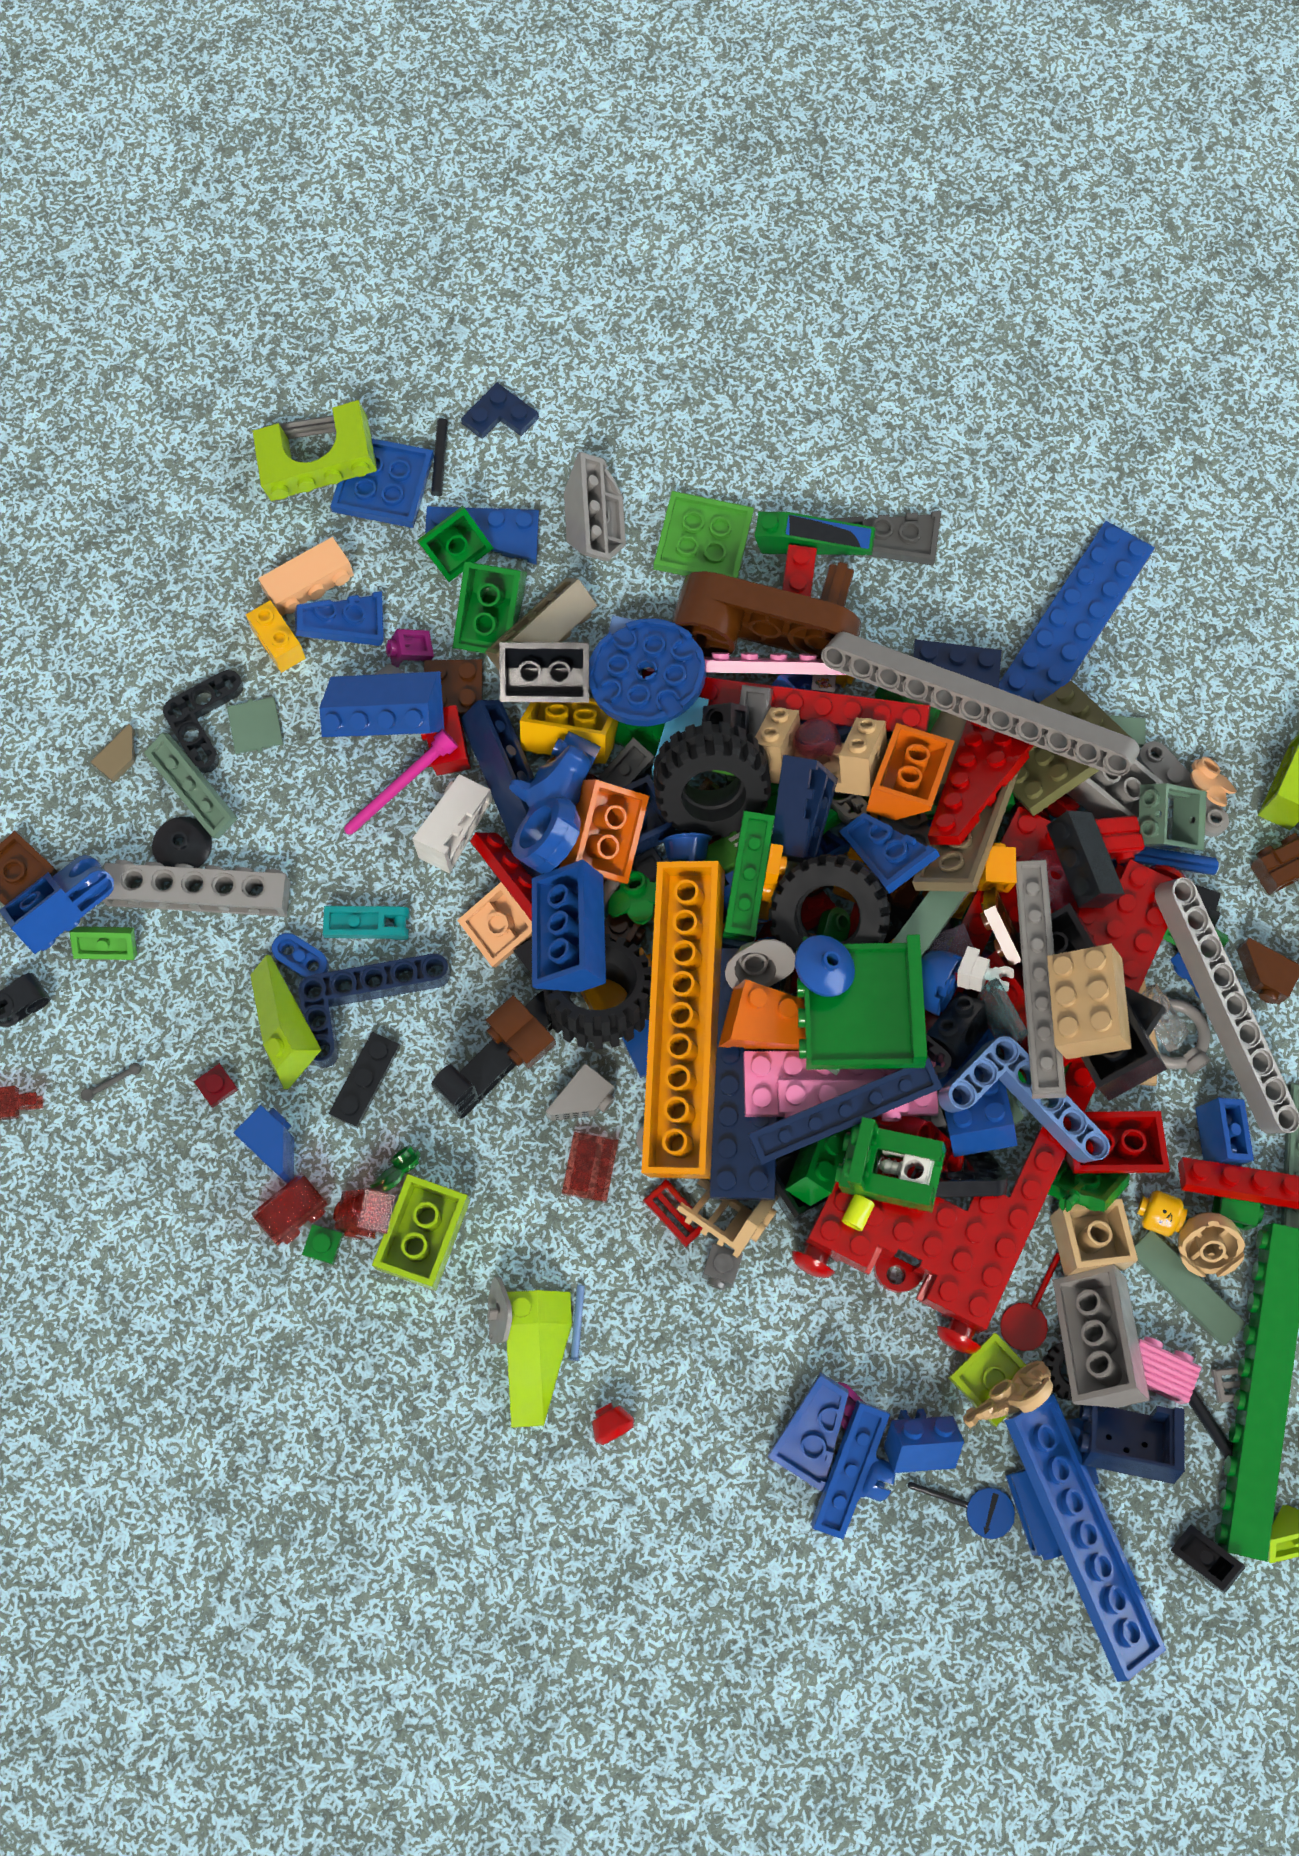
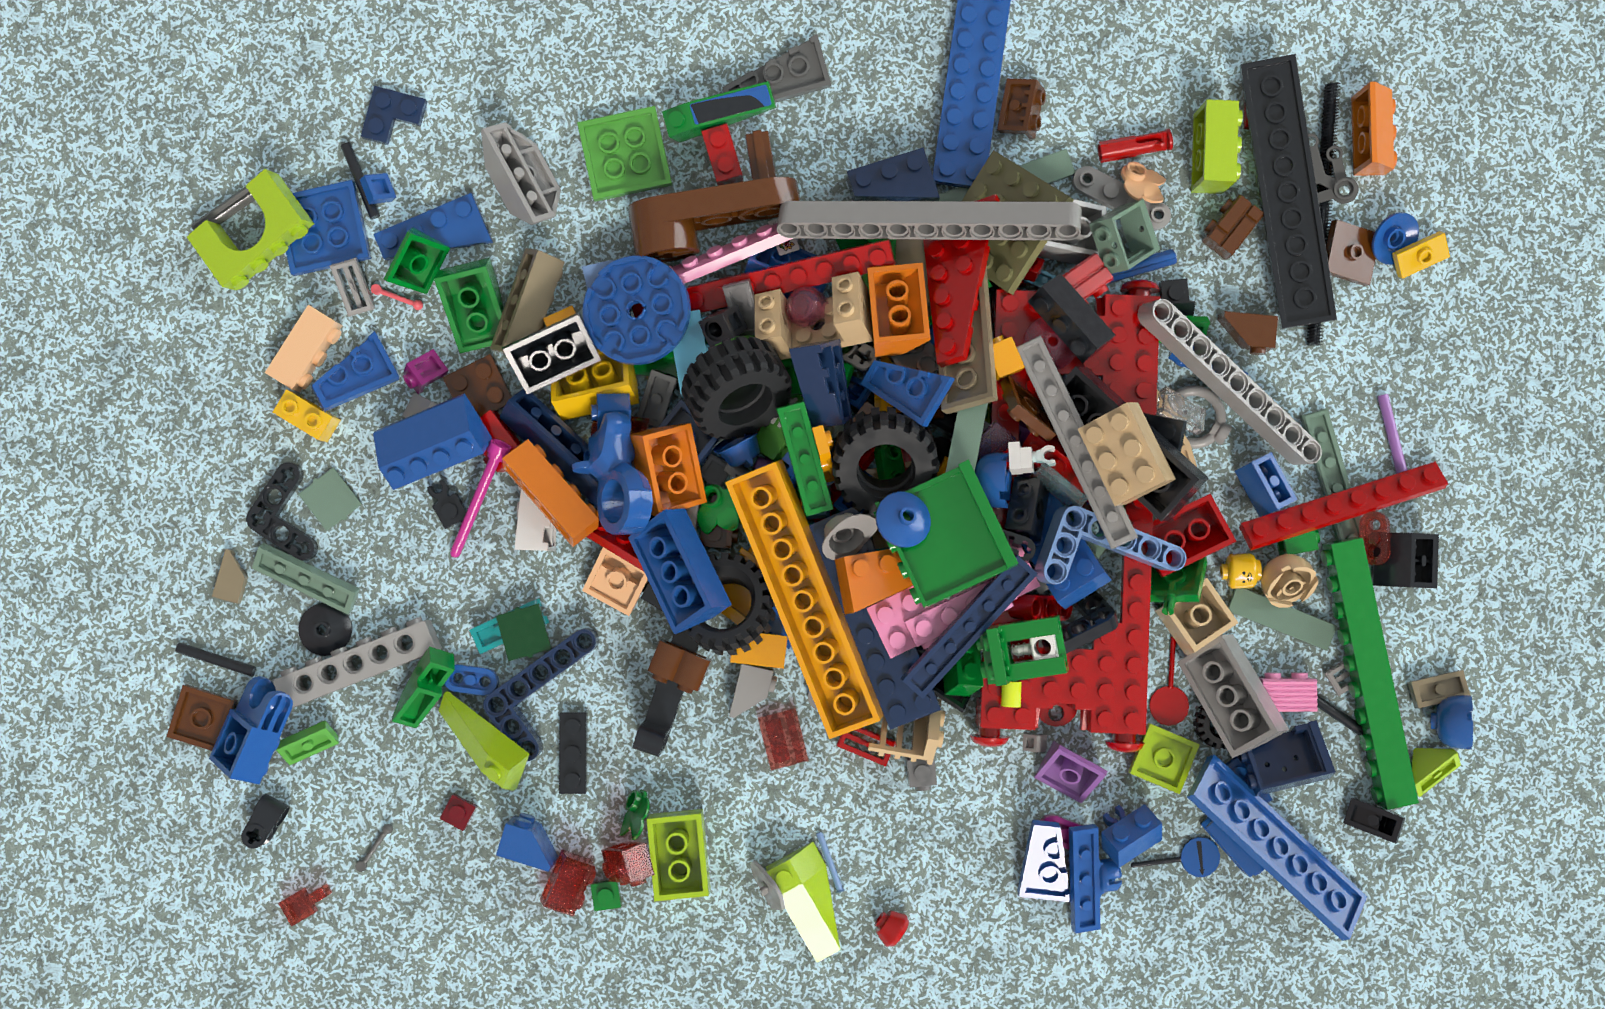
camera: 25 degrees left, 15 degrees up
(59, 823) = (215, 659): none -> black bar
(248, 940) = (424, 687): none -> green slope
(365, 784) = (449, 508): none -> black plate
(377, 932) = (523, 632): none -> dark green piece
(389, 568) = (362, 283): none -> light grey tile
(403, 557) = (377, 290): none -> coral hinge
(452, 468) = (378, 188): none -> blue plate
(476, 802) = (550, 492): none -> orange brick
(614, 1064) = (767, 653): none -> light orange panel
(858, 1298) = (1034, 742): none -> light grey piece
(884, 1345) = (1069, 772): none -> medium lavender slope
(1021, 1393) = (1184, 771): tan animal -> none
(1116, 661) = (1021, 107): none -> reddish brown bracket
(1217, 744) = (1134, 145): none -> red piece

